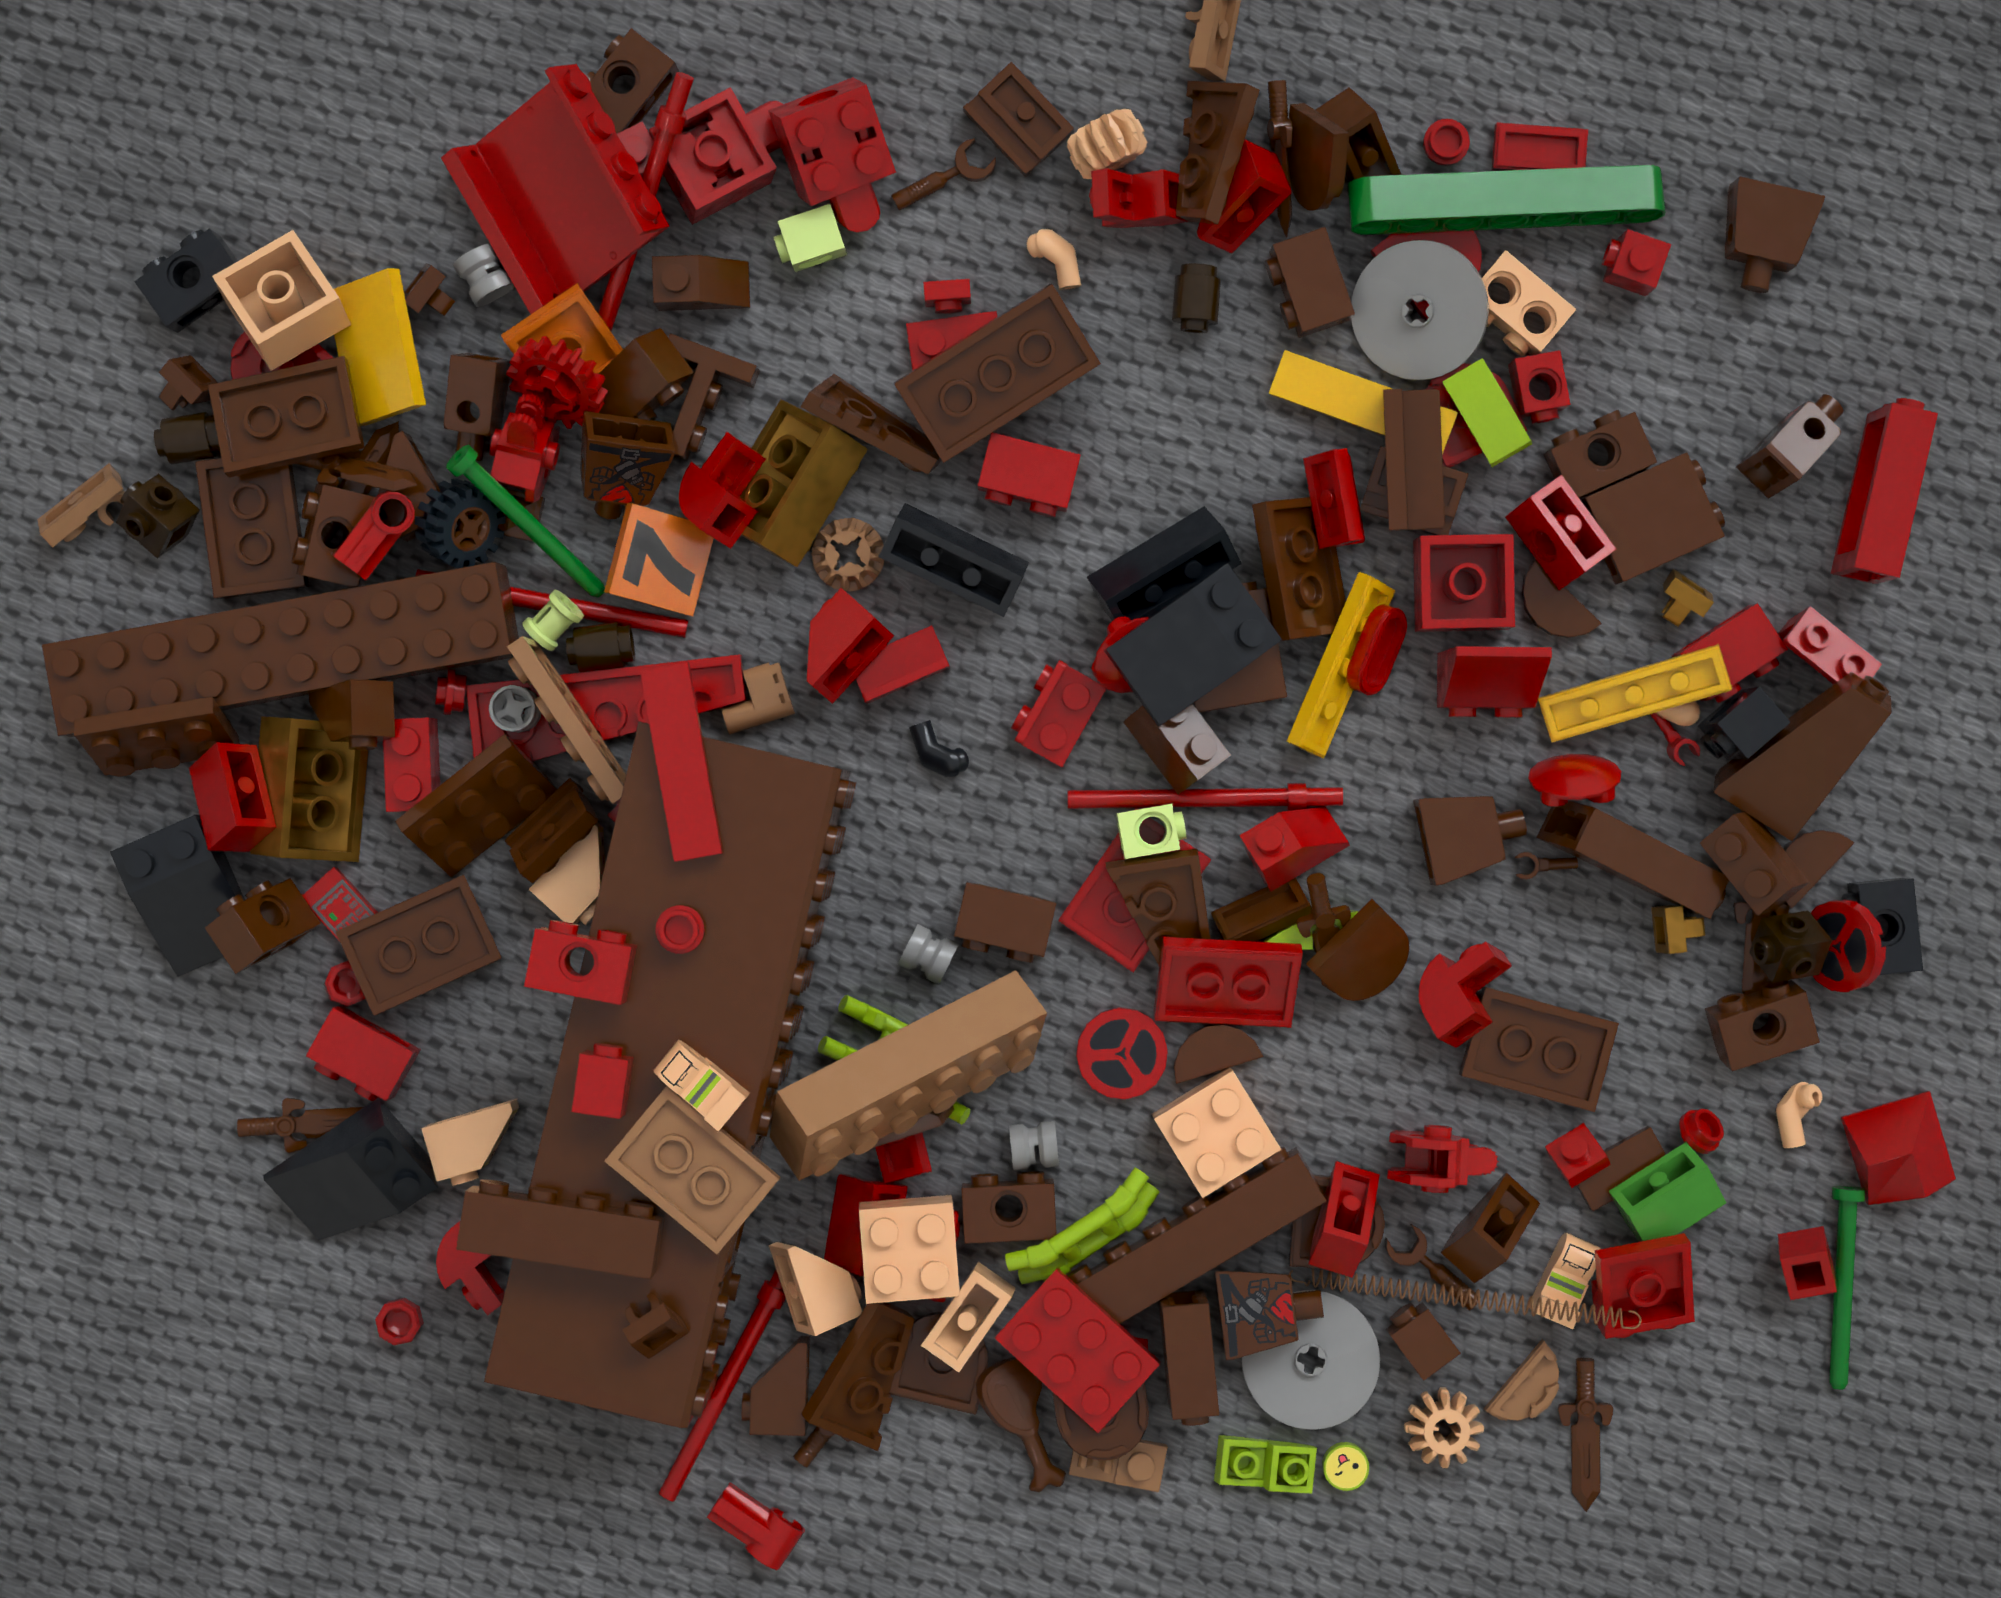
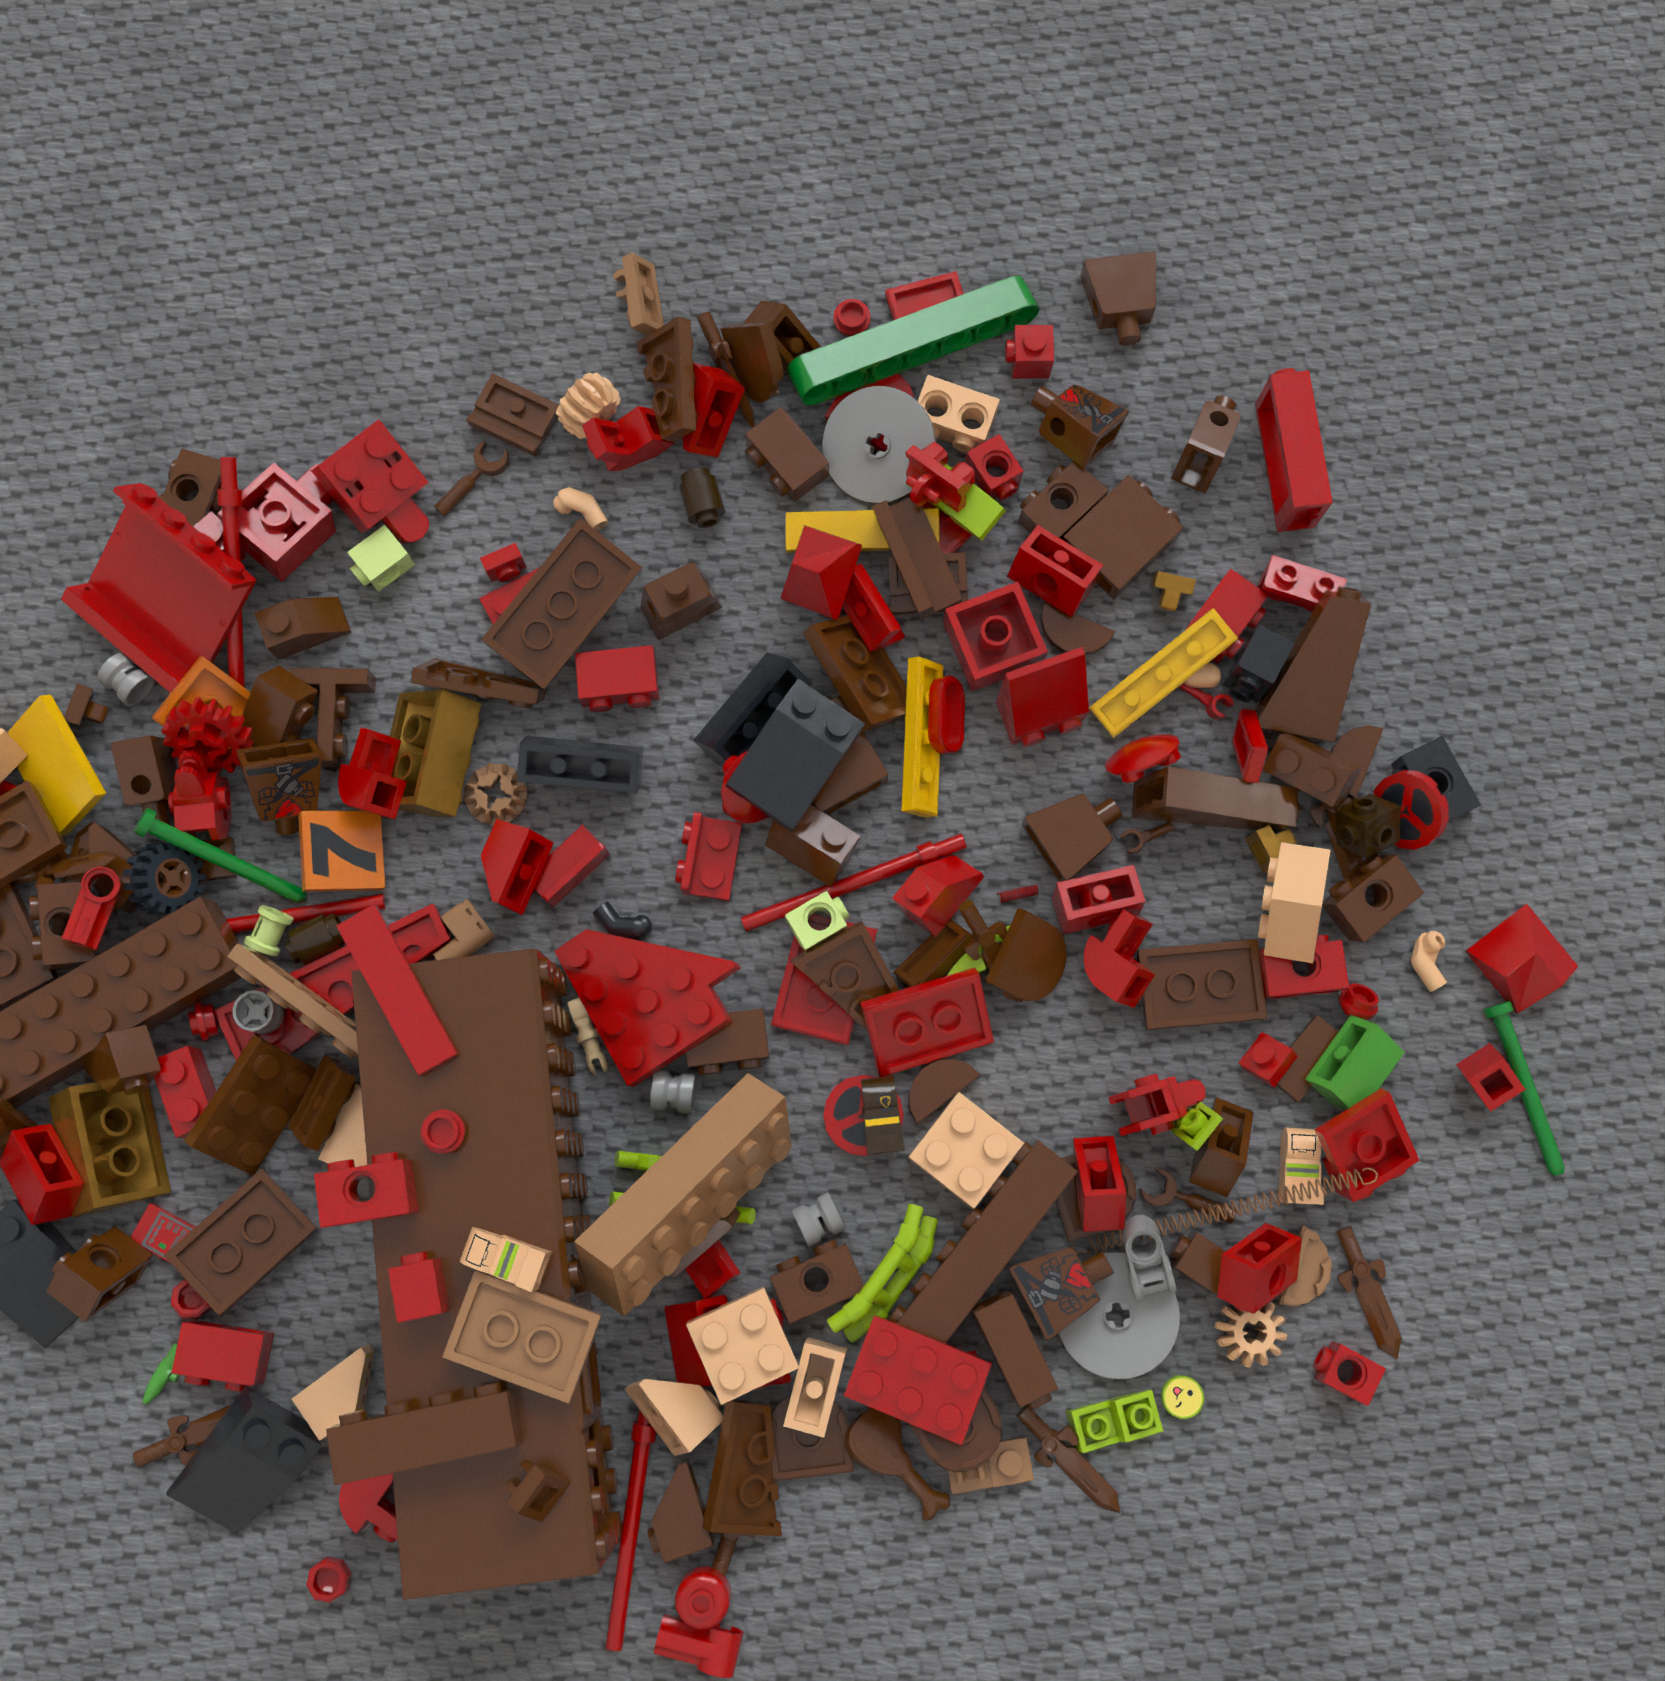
camera: 25 degrees left, 10 degrees down
(292, 1050) = (161, 1376): none -> bright green helmet
(776, 1482) = (703, 1597): none -> red head
(857, 858) = (587, 1036): none -> tan piece
(934, 844) = (645, 998): none -> red wing
(1127, 411) = (678, 600): none -> reddish brown torso
(1140, 1064) = (881, 1116): none -> dark brown leg
(1203, 1485) = (1069, 1459): none -> reddish brown sword
(1298, 438) = (821, 572): none -> red slope
(1363, 1321) = (1148, 1264): none -> light grey piece
(1381, 880) = (1017, 896): none -> red leg
(1462, 383) = (934, 481): none -> red hips
(1462, 917) = (1097, 898): none -> red brick
(1472, 1200) = (1196, 1125): none -> lime slope
(1478, 1369) = (1259, 1268): none -> red brick
(1538, 1523) = (1365, 1372): none -> red brick
(1655, 368) = (1079, 422): none -> reddish brown torso
(1672, 1003) = (1294, 902): none -> light nougat brick
(1676, 1088) = (1325, 974): none -> red brick
(1696, 811) = (1249, 745): none -> red tile

